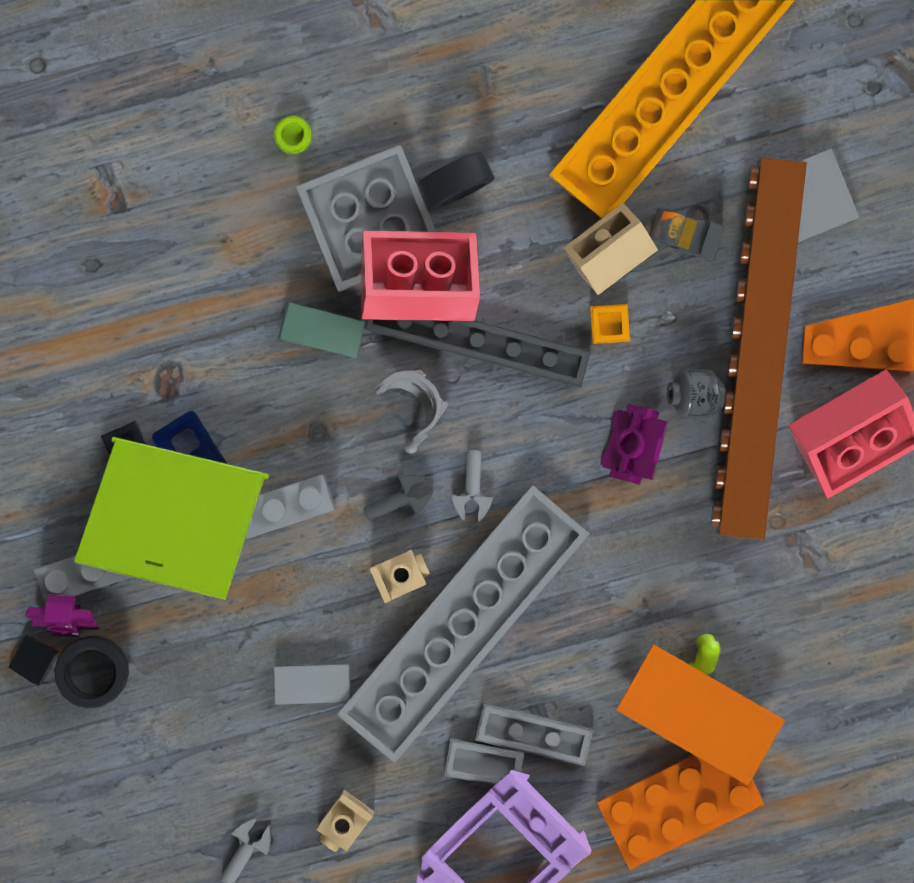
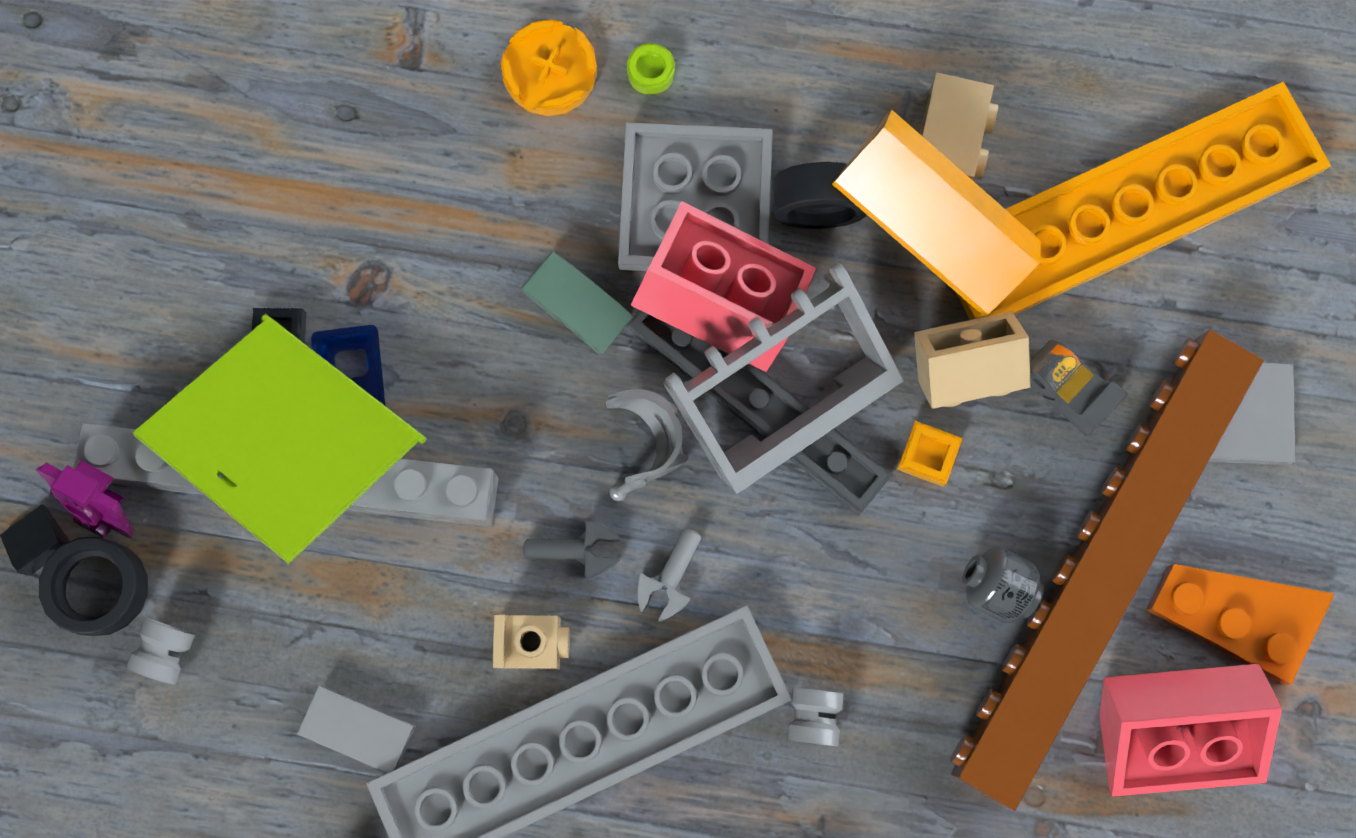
camera: 25 degrees right, 10 degrees down
(158, 693) = (160, 651): none -> light grey wheel
(220, 167) = (549, 68): none -> light orange tile
(528, 89) = (956, 120): none -> tan brick
(542, 299) = (857, 385): none -> light grey hinge
(544, 160) = (939, 214): none -> light orange slope
(610, 537) = (815, 716): none -> light grey wheel
(634, 444) = (898, 613): magenta piece -> none

